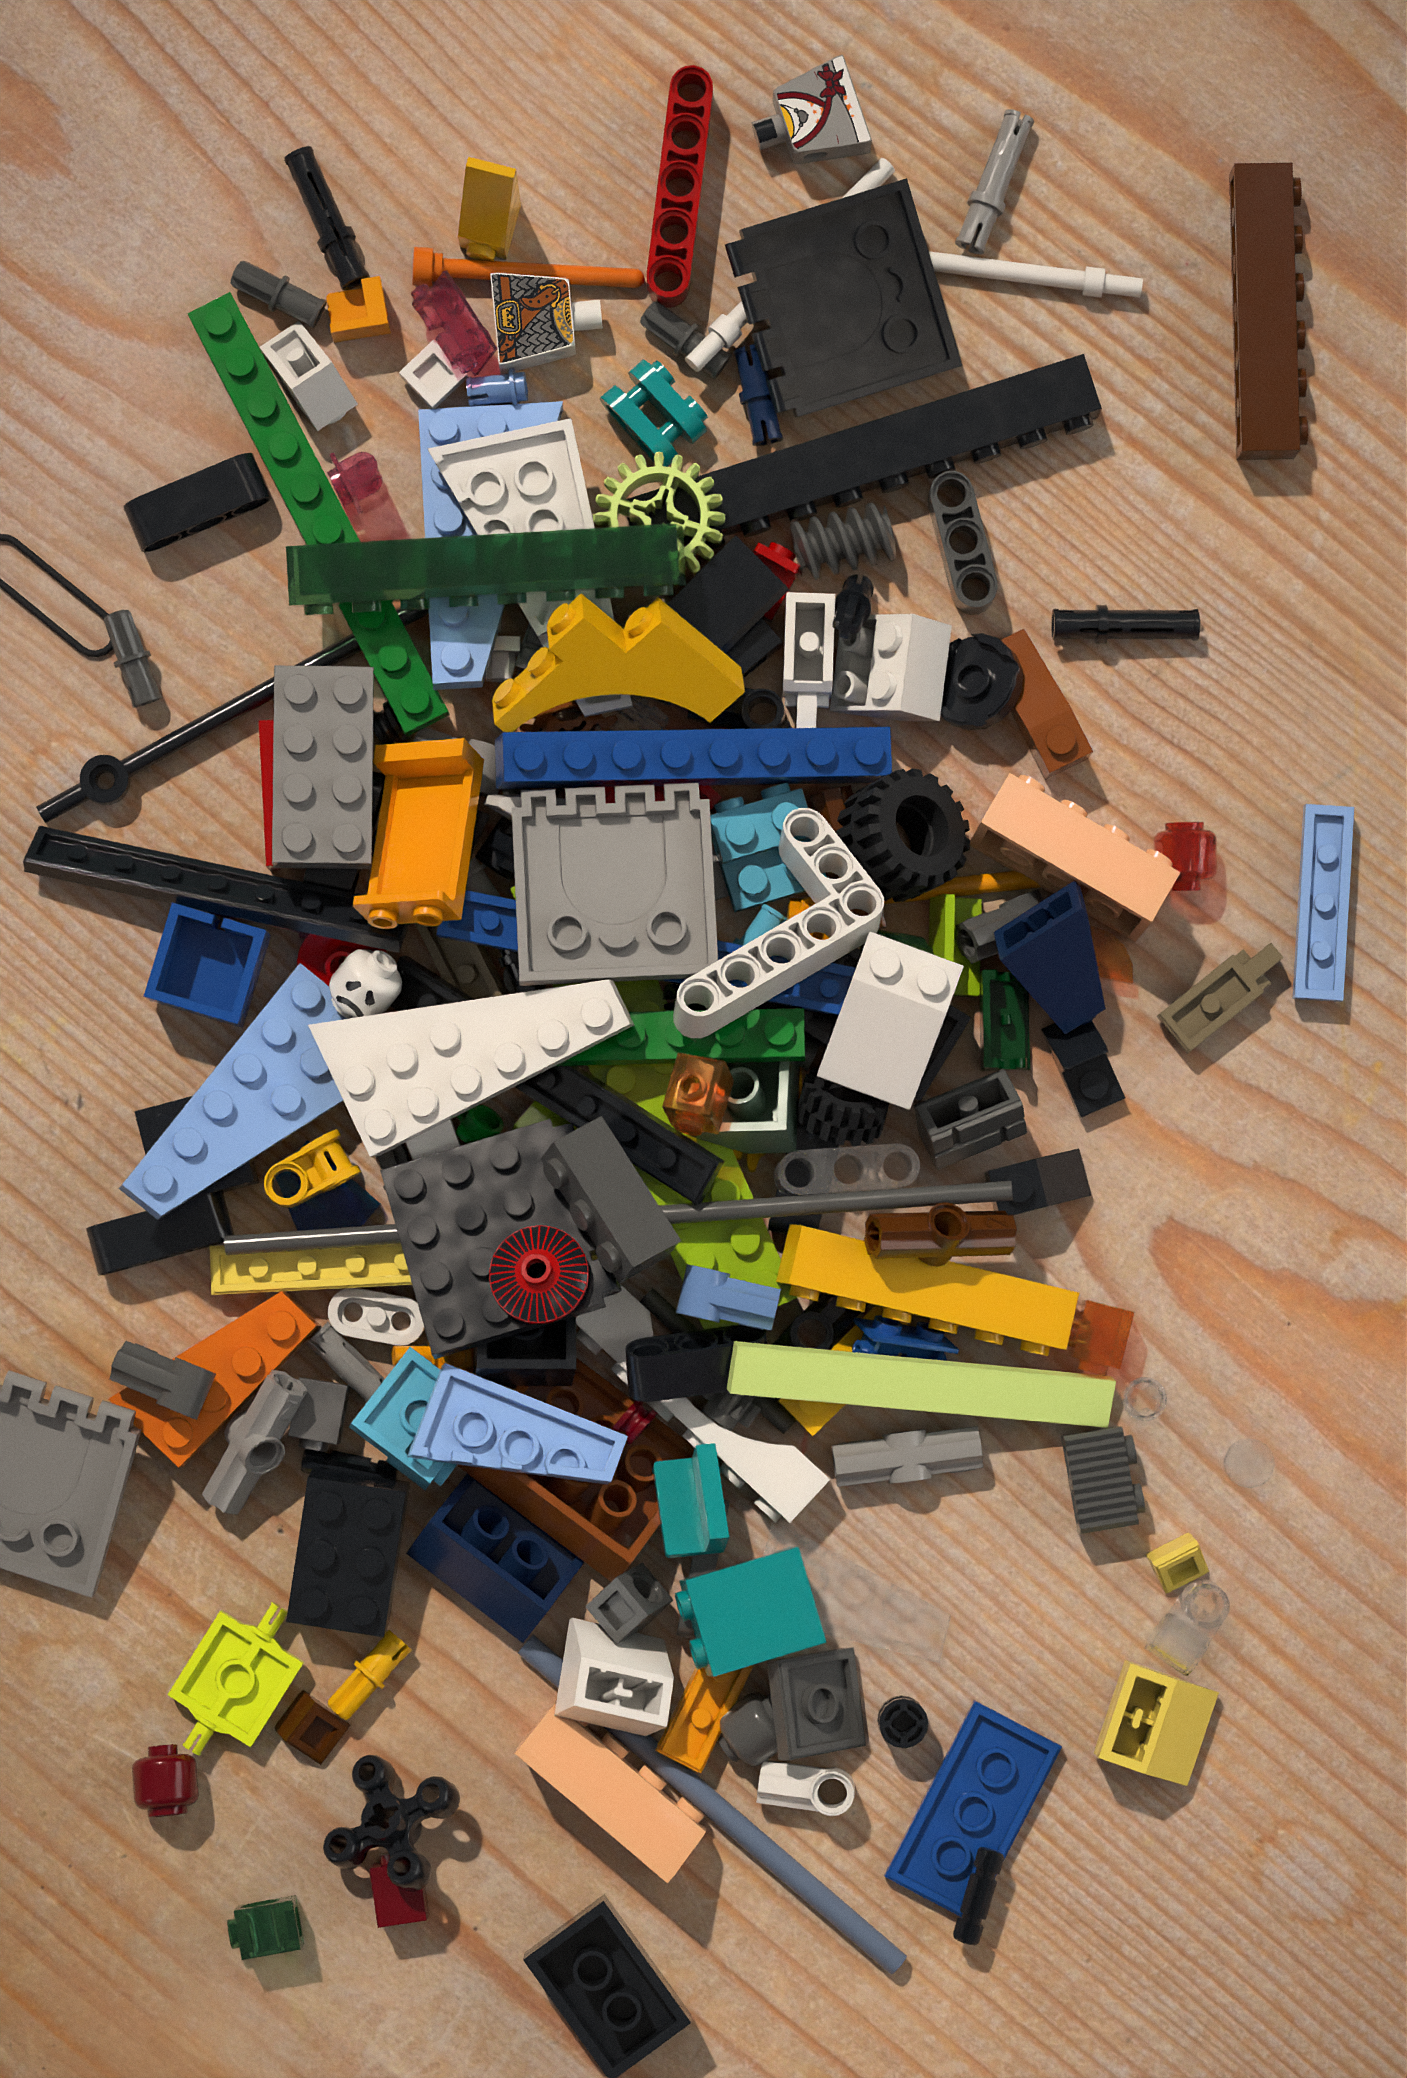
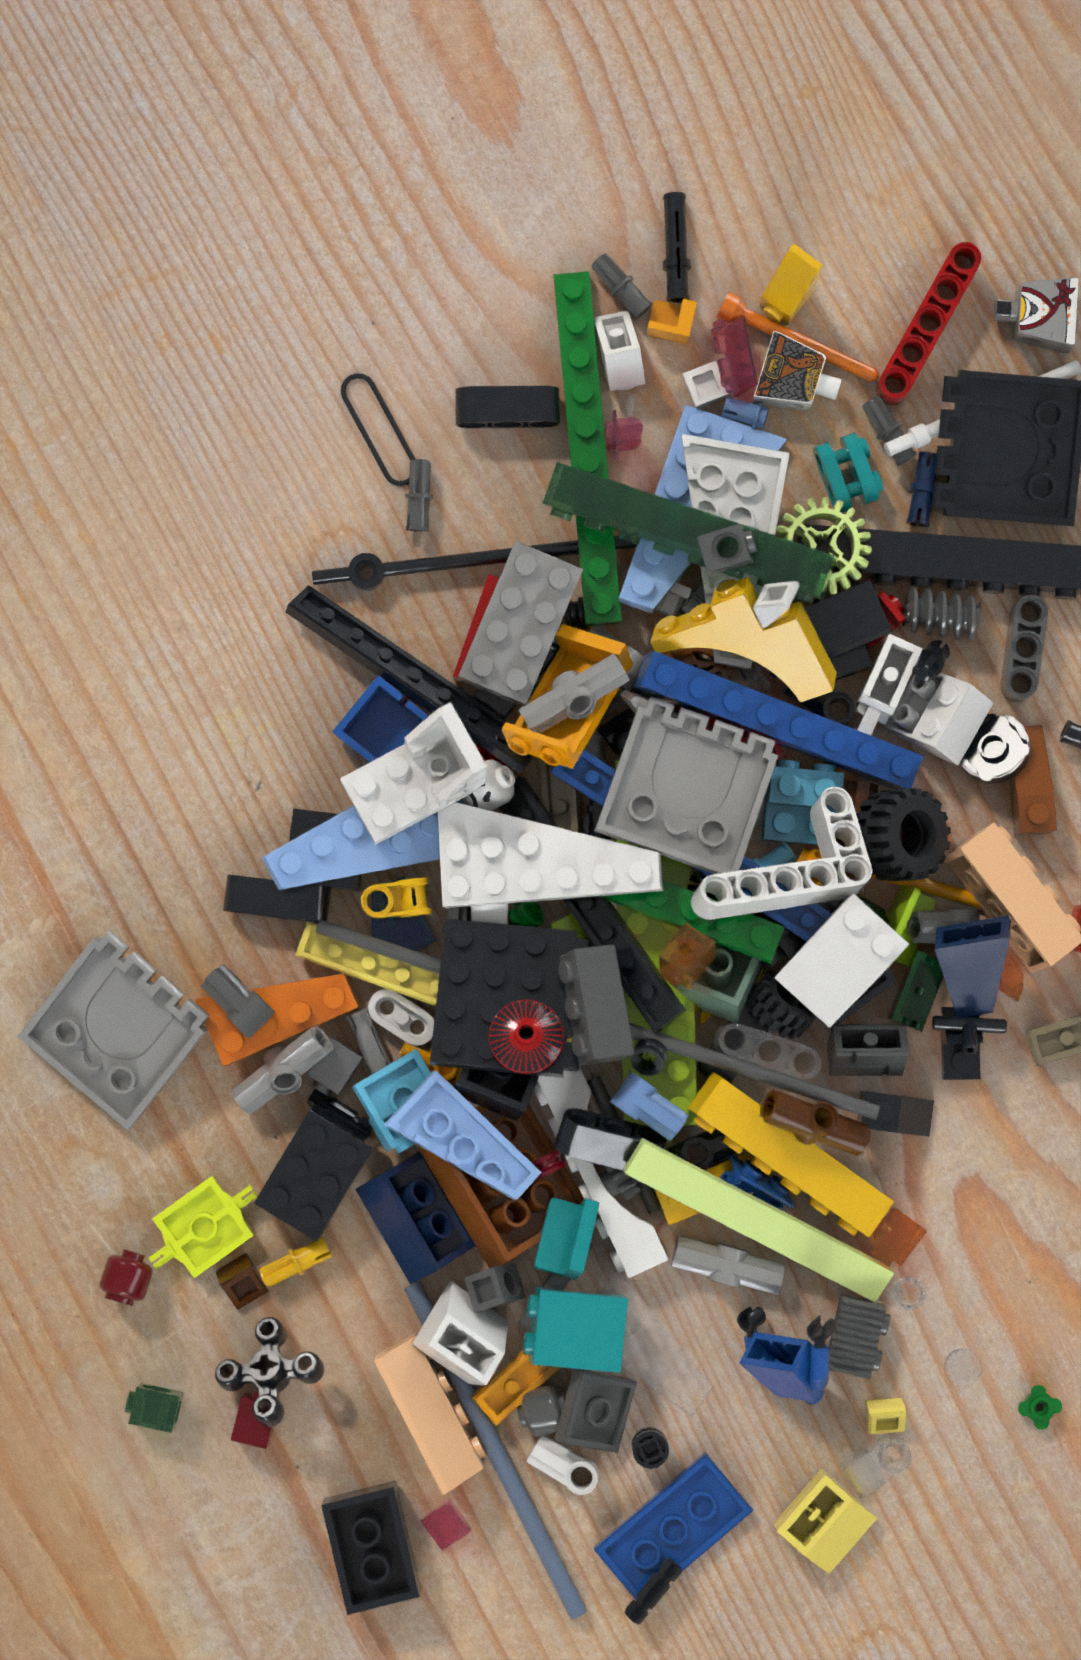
camera: 30 degrees right, 0 degrees up
(274, 1010) = (417, 778): none -> white bracket
(426, 827) = (574, 694): none -> light grey piece
(518, 572) = (711, 543): none -> dark grey brick
(625, 610) = (774, 601): none -> white slope
(689, 1922) = (446, 1524): none -> clear pink slope
(708, 1250) = (649, 1067): none -> black bush
(1026, 1548) = (787, 1364): none -> blue torso
(1084, 1040) = (969, 1027): none -> black piece
(1355, 1460) = (1029, 1407): none -> green plate

